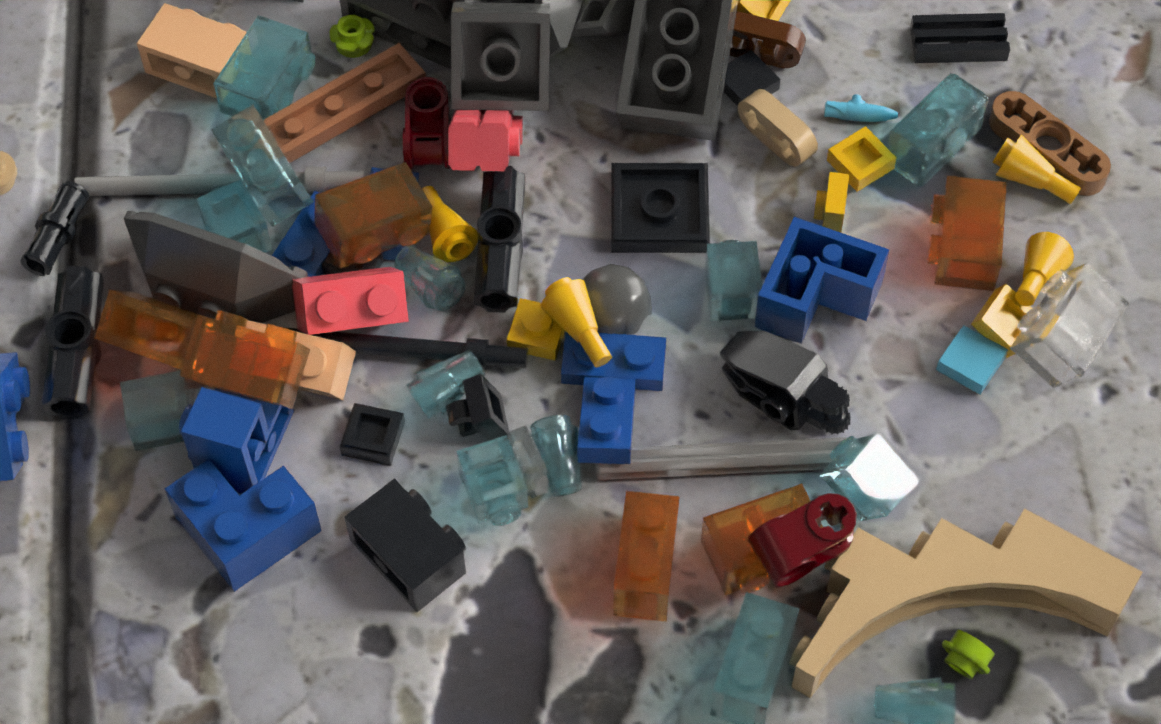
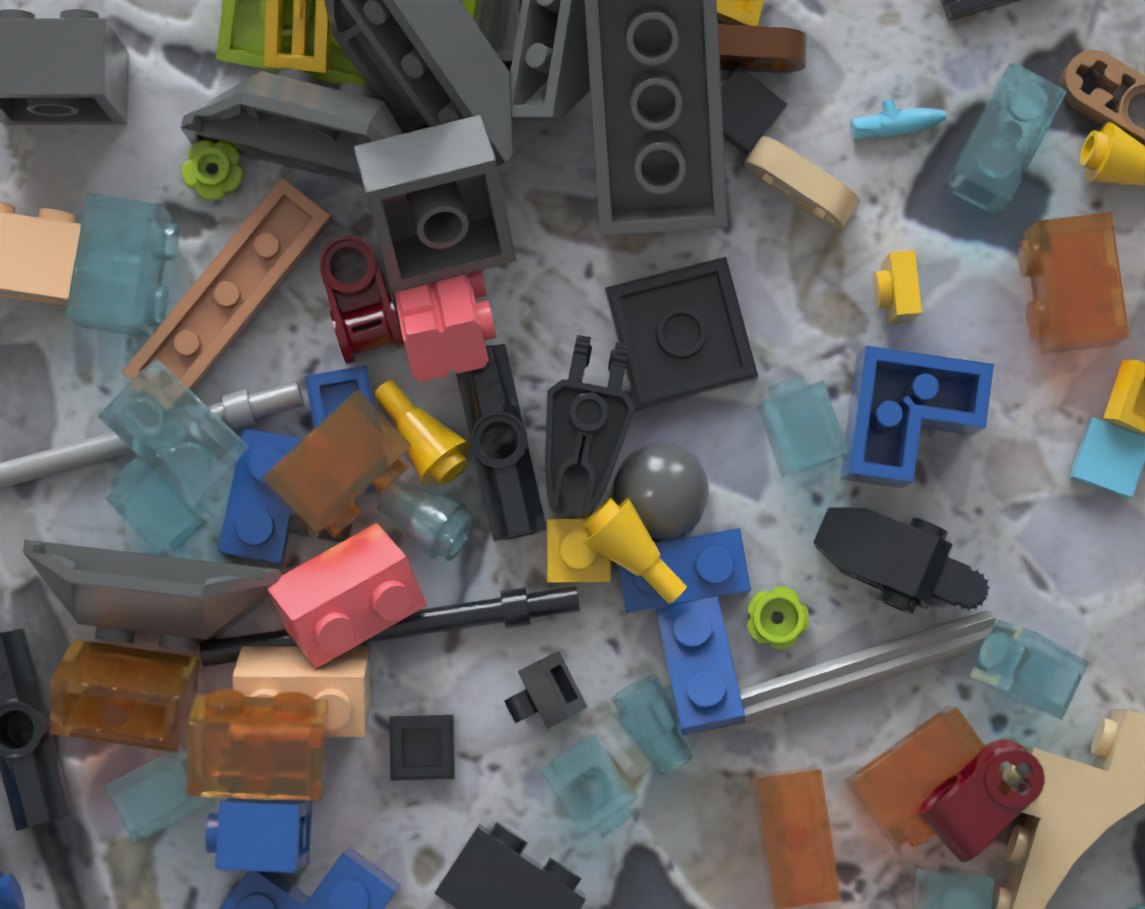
camera: 20 degrees left, 25 degrees up
(443, 382) = (491, 669): clear light blue cone -> none
(568, 236) = (588, 415): none -> black hinge
(679, 394) = (794, 617): none -> lime plate
(862, 158) = (917, 202): yellow plate -> none

